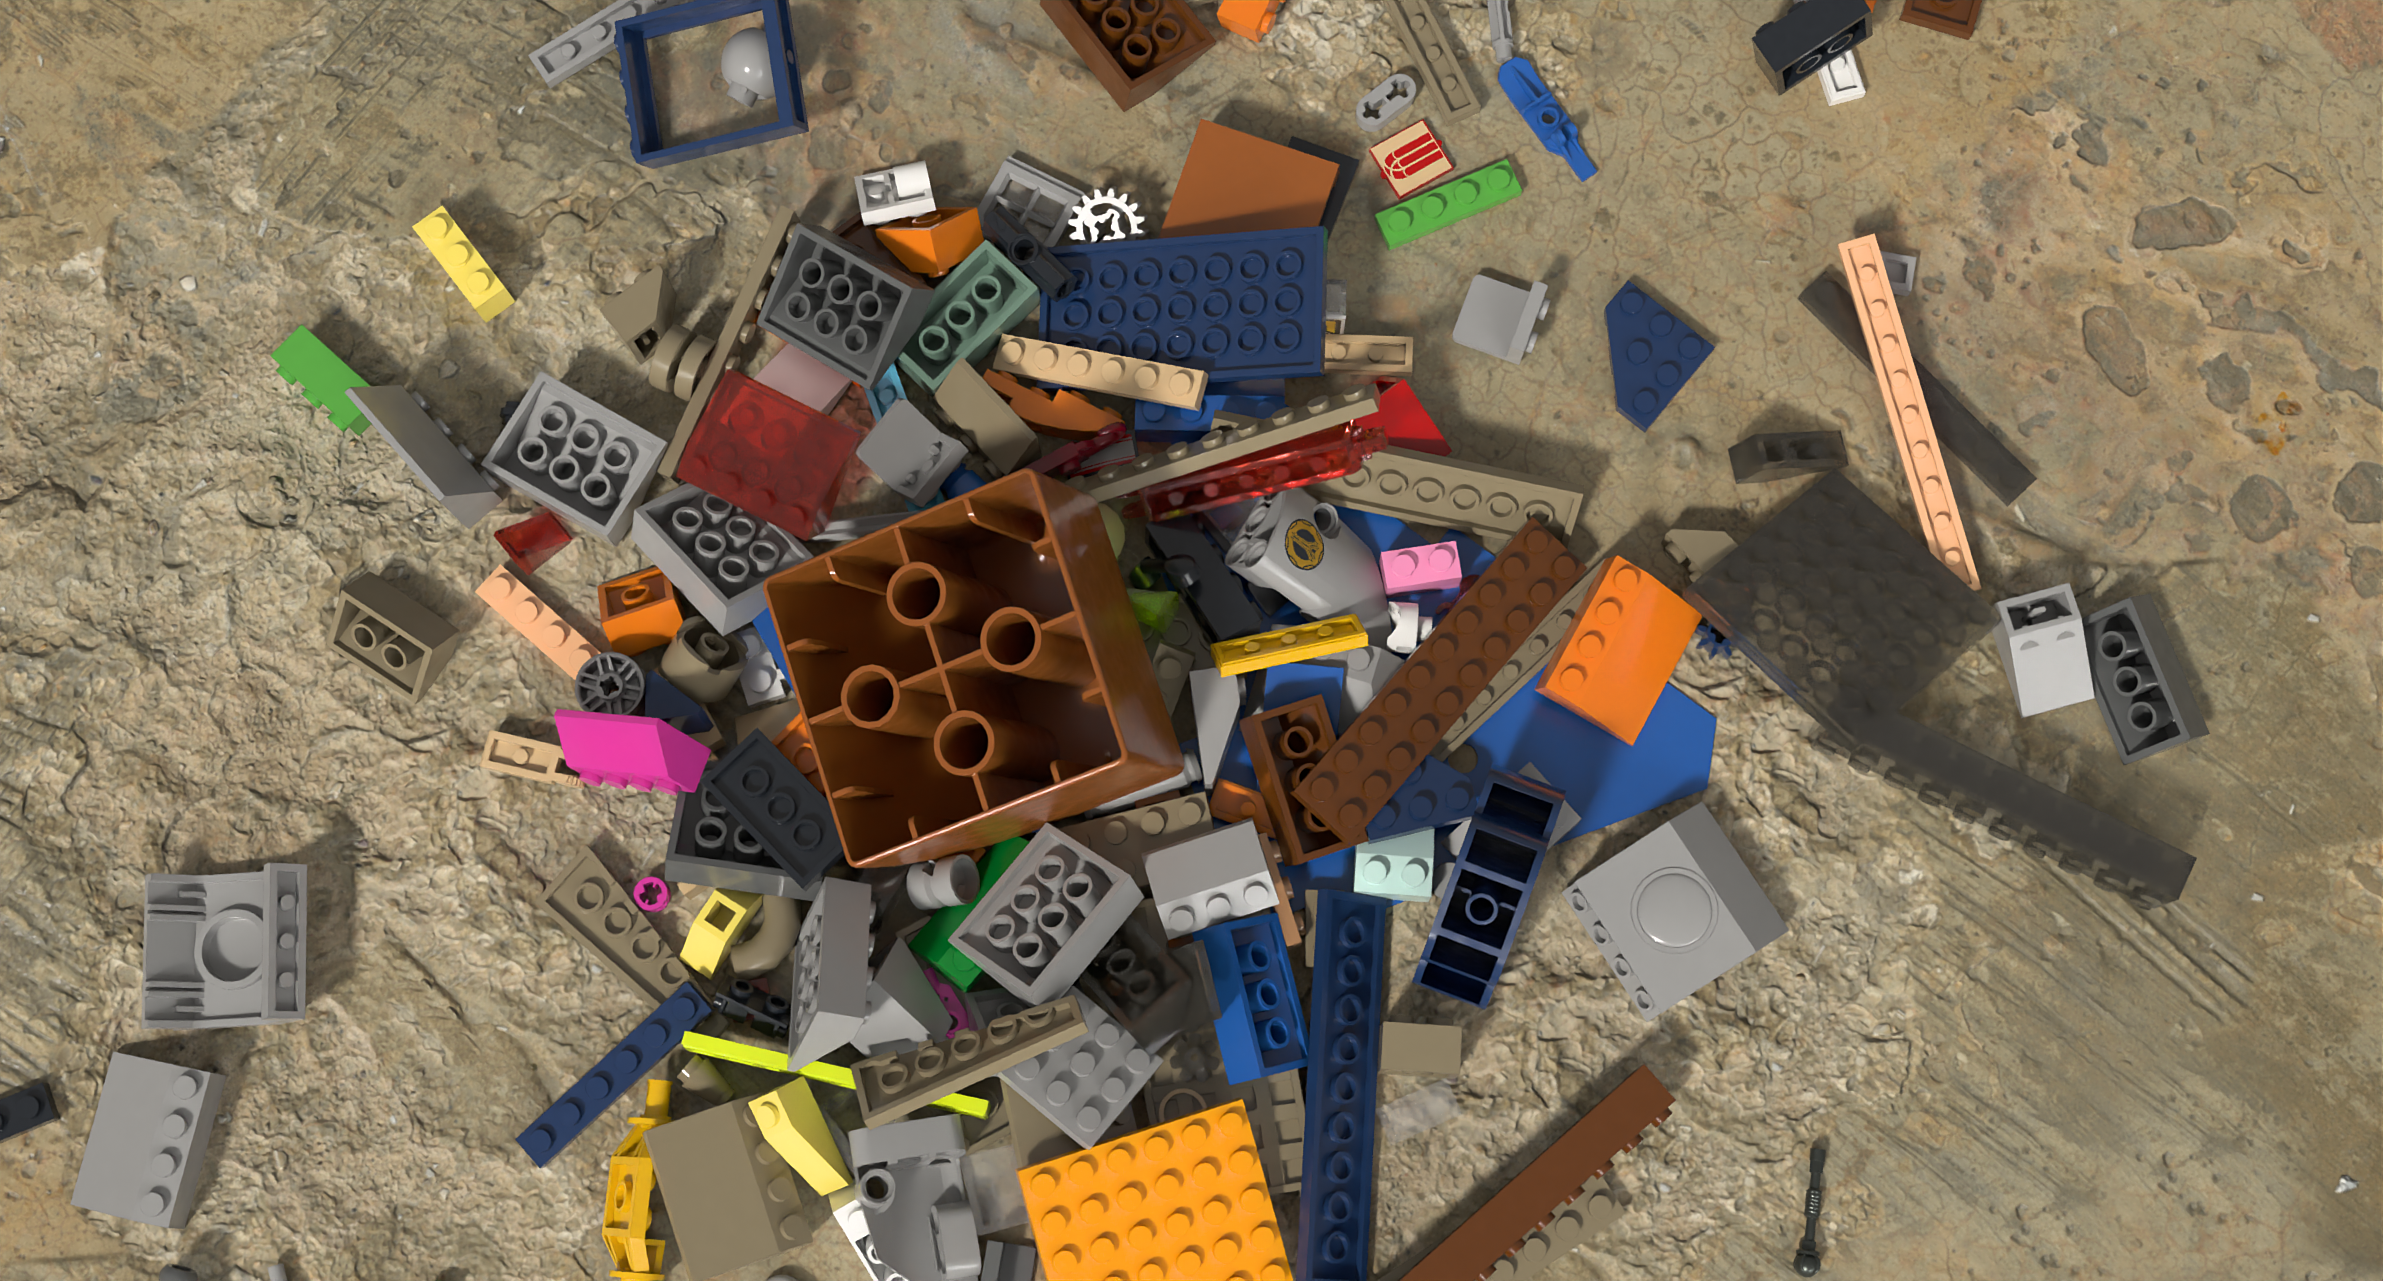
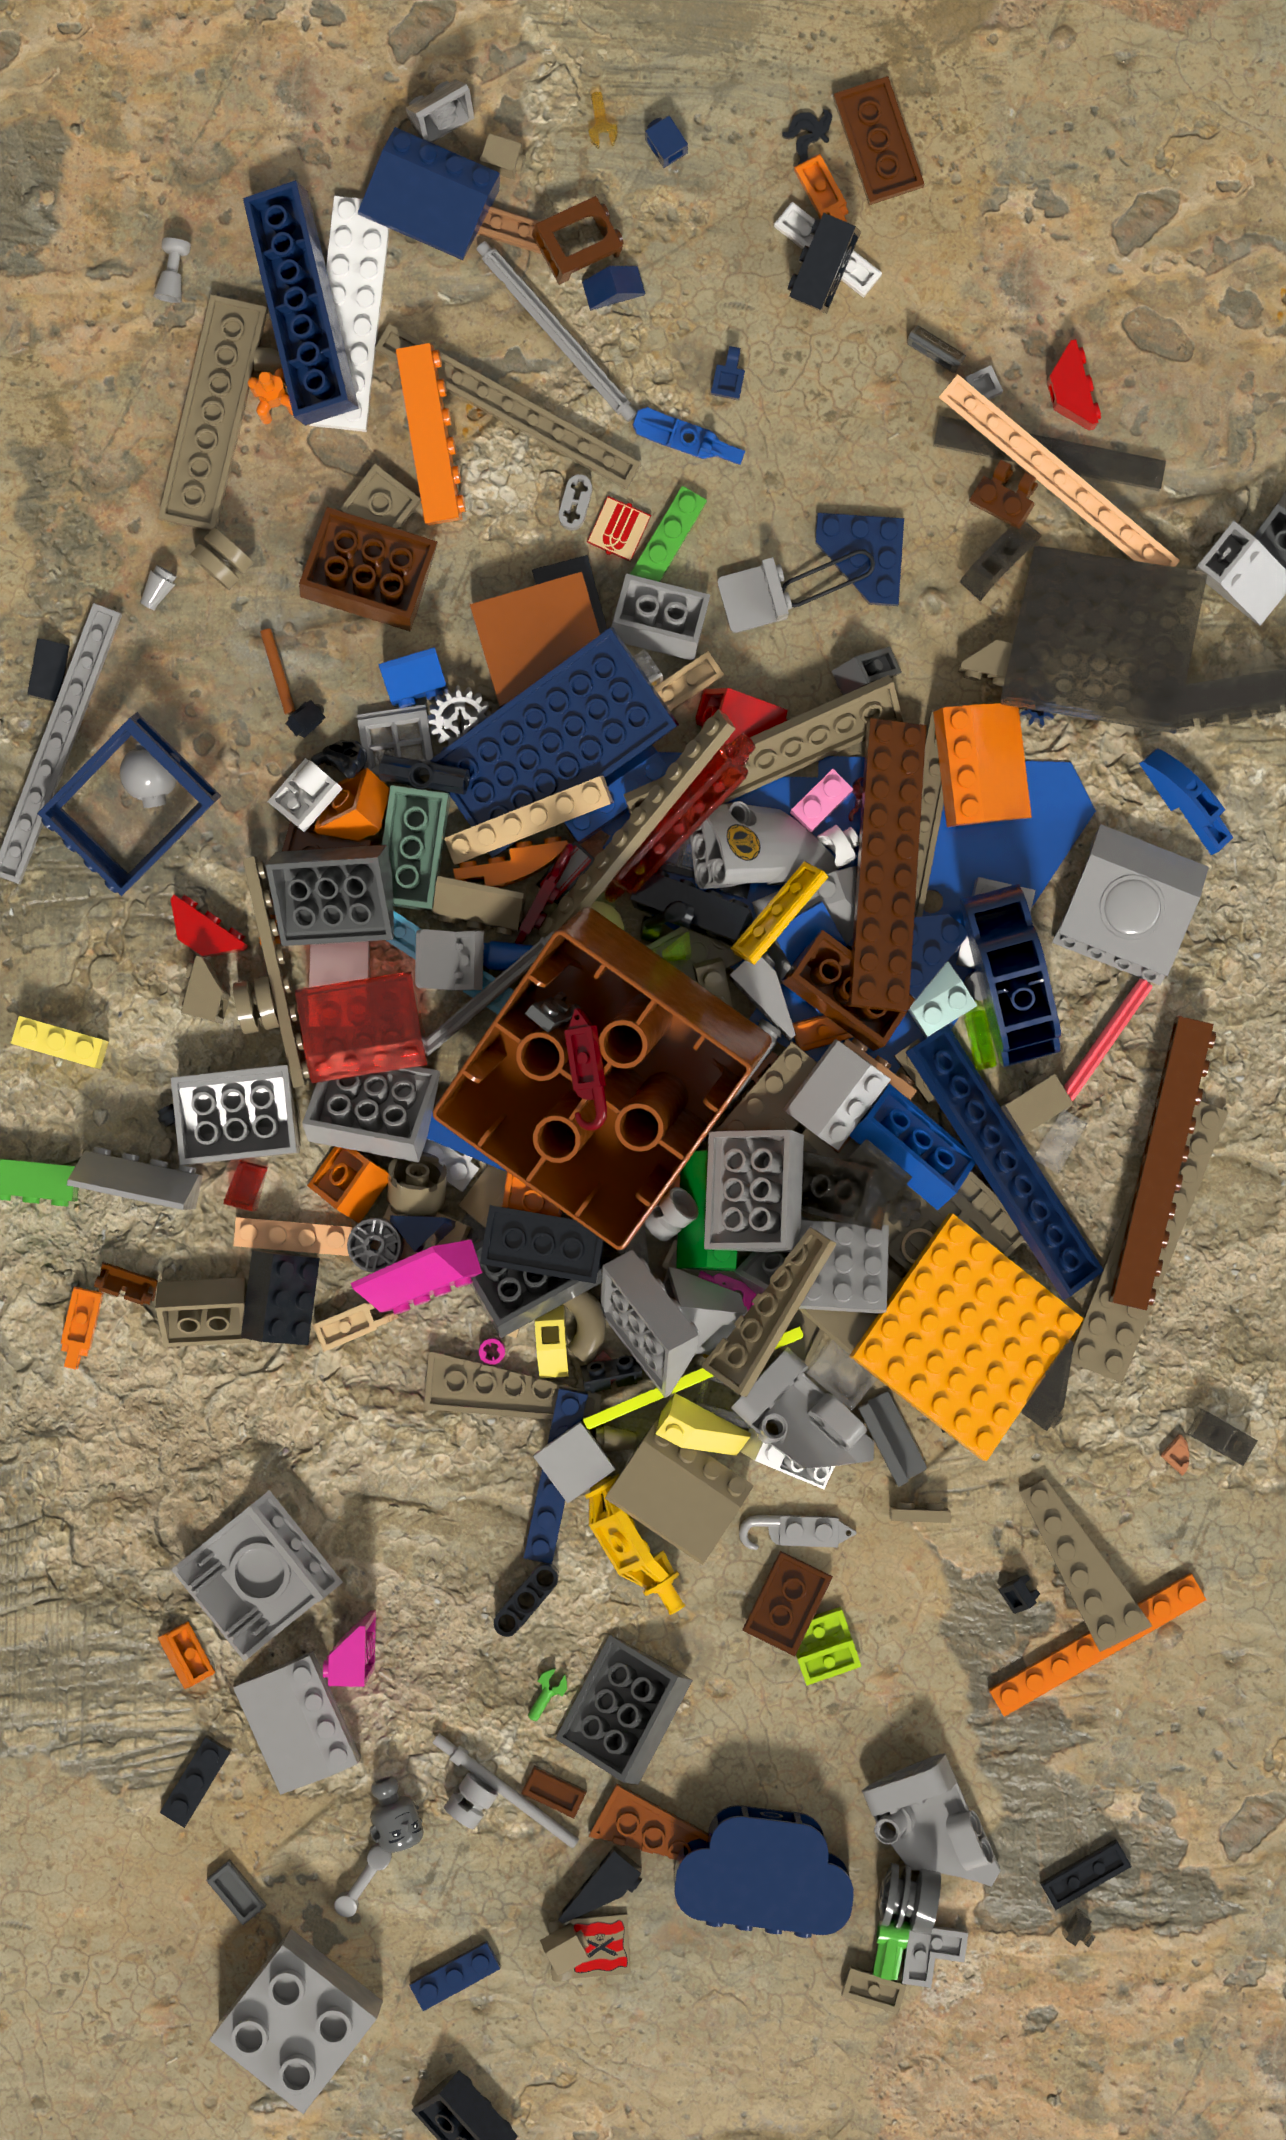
camera: 30 degrees left, 10 degrees up
(95, 981) = (186, 1655): none -> orange slope
(252, 1102) = (354, 1655): none -> dark pink slope
(259, 560) = (80, 1325): none -> orange hinge
(331, 537) = (138, 1287): none -> reddish brown hinge
(464, 1186) = (520, 1612): none -> black beam
(475, 674) = (280, 1298): none -> black brick
(642, 1071) = (574, 1462): none -> light grey tile
(690, 257) = (203, 931): none -> red slope
(953, 121) = (306, 718): none -> black piece
(954, 637) = (586, 1067): none -> dark red plate
(962, 61) = (277, 670): none -> dark orange bar
(964, 185) = (344, 755): none -> black piece
(968, 565) = (552, 1012): none -> dark grey hinge
(1091, 152) = (413, 677): none -> blue slope
(1387, 269) = (660, 616): none -> light grey slope
(1410, 940) = (980, 1040): none -> clear neon green slope
(1547, 1037) = (1107, 1038): none -> coral axle
(1566, 464) = (866, 669): none -> dark grey slope
(1590, 366) = (828, 565): none -> black piece
(1633, 87) = (729, 378): none -> dark blue plate
(1820, 830) = (1184, 790): none -> blue slope
(1830, 400) = (1002, 502): none -> reddish brown plate
(1868, 203) = (935, 349): none -> dark grey slope
(1986, 336) = (1071, 388): none -> red slope

